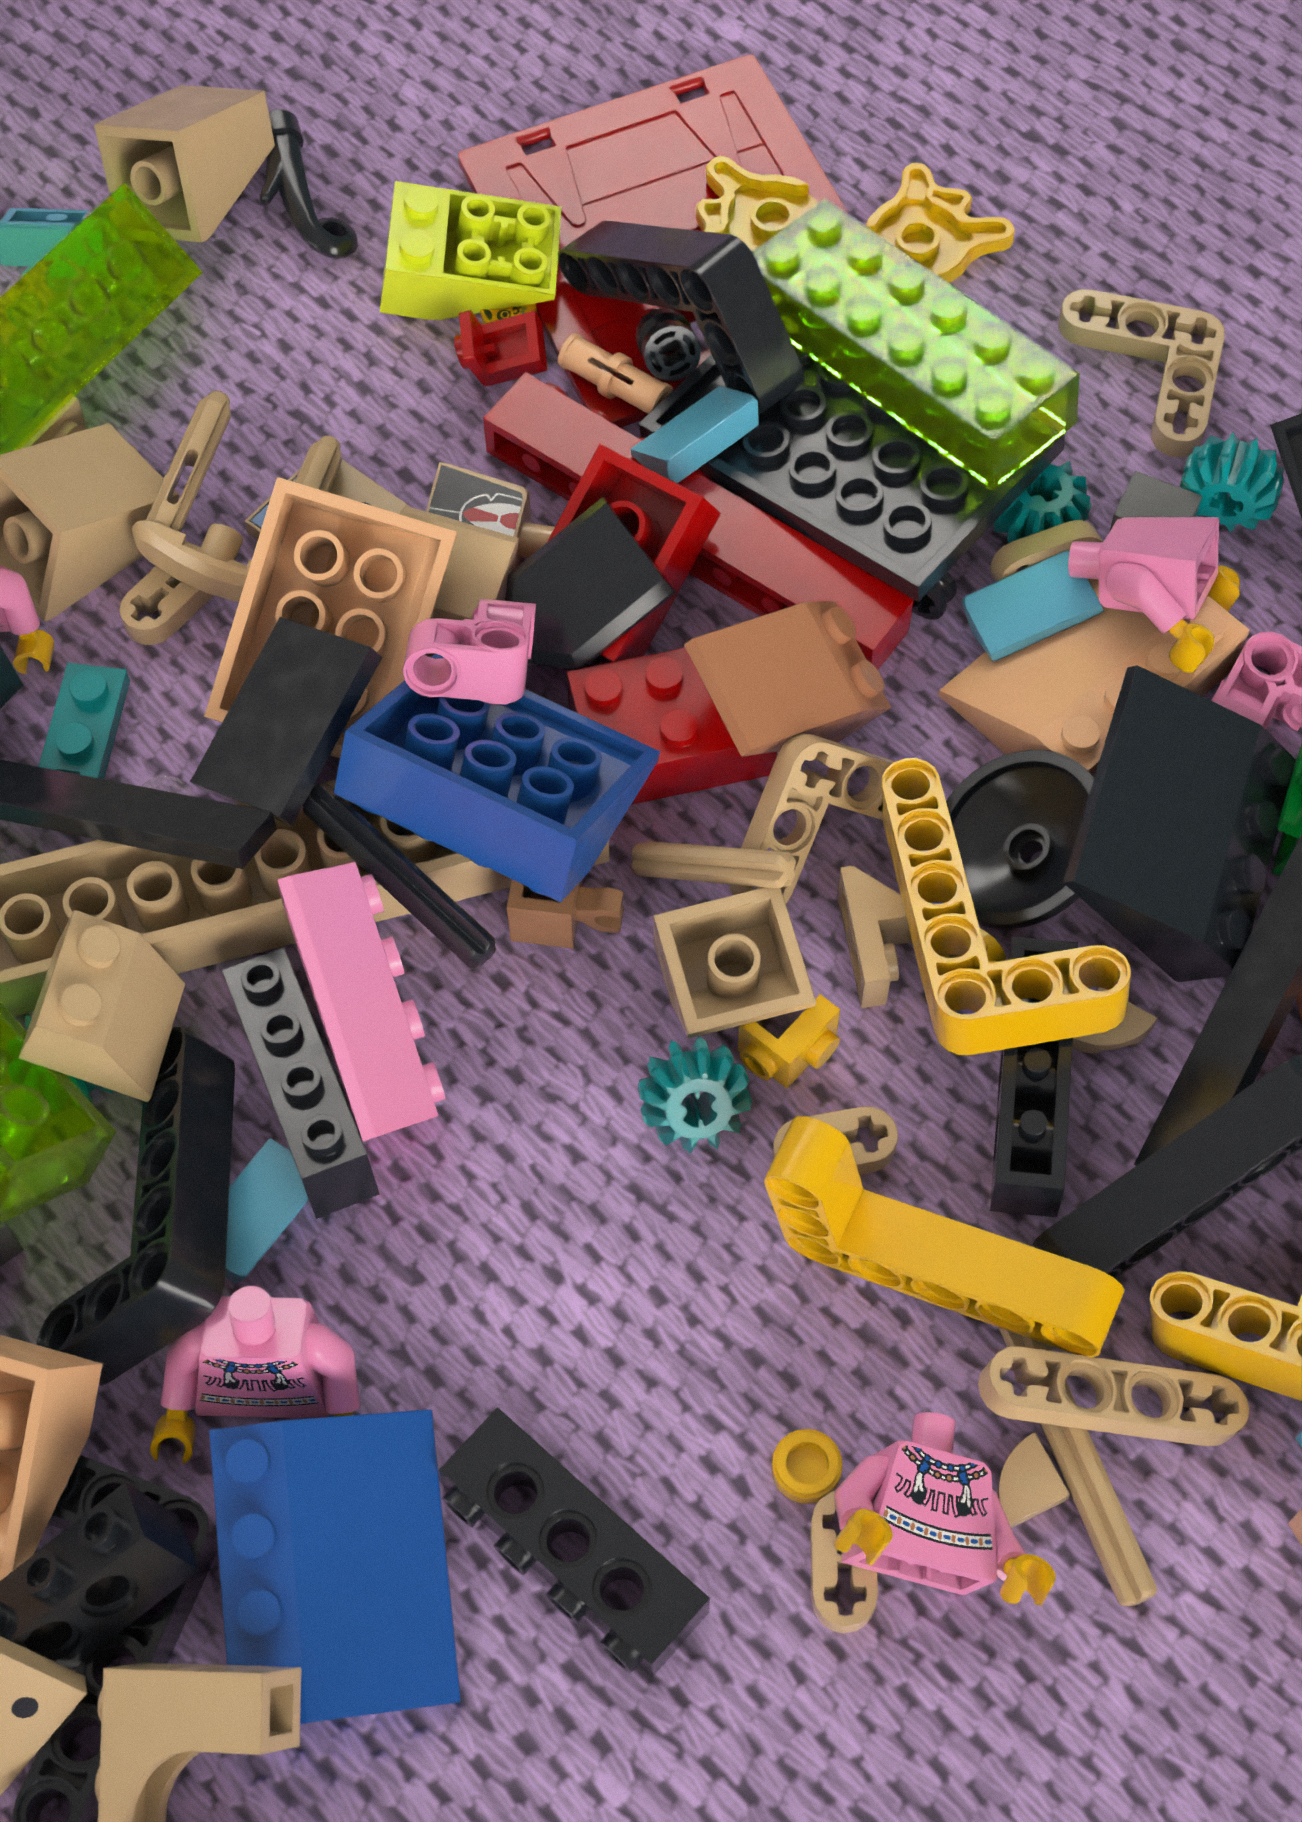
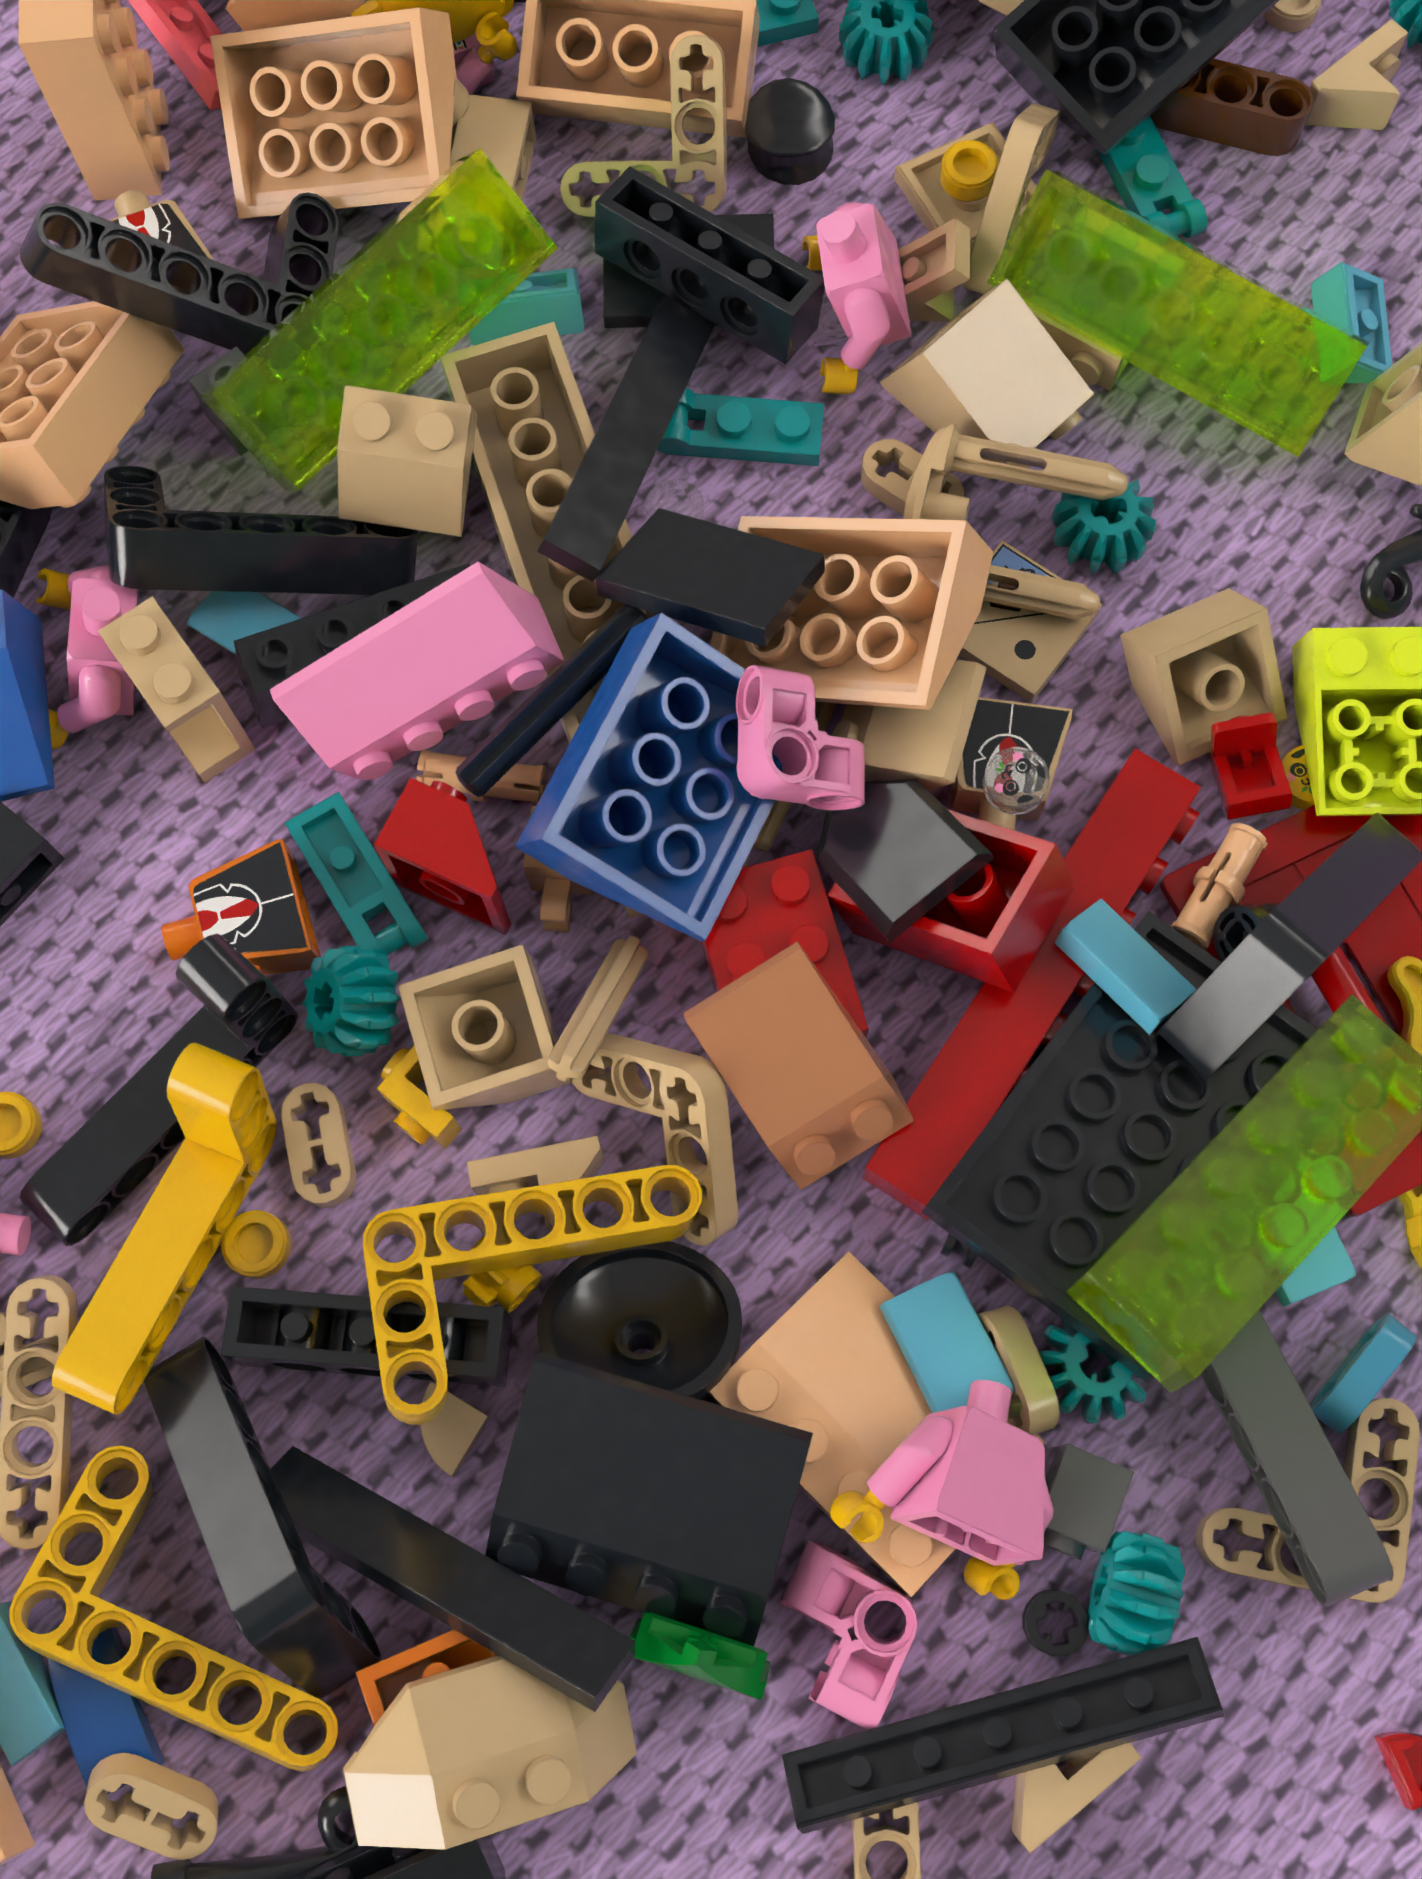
camera: 90 degrees right, 10 degrees up
(251, 440) = (1104, 529): none -> teal gear
(341, 1253) = (177, 689): none -> tan panel
(402, 370) = (1204, 670): none -> tan slope
(447, 994) = (519, 783): none -> light nougat pin
(511, 504) = (1016, 780): none -> clear tile
(547, 994) = (440, 855): none -> red slope
(551, 1109) = (354, 876): none -> teal plate
(592, 1207) = (256, 907): none -> torso
(702, 1205) = (137, 1125): none -> black beam
(938, 1194) = (256, 1244): none -> yellow tile
(1043, 319) = (1363, 1373): none -> dark azure beam
(1148, 355) = (1295, 1467): none -> dark grey beam
(1264, 542) = (1073, 1635): none -> black bush

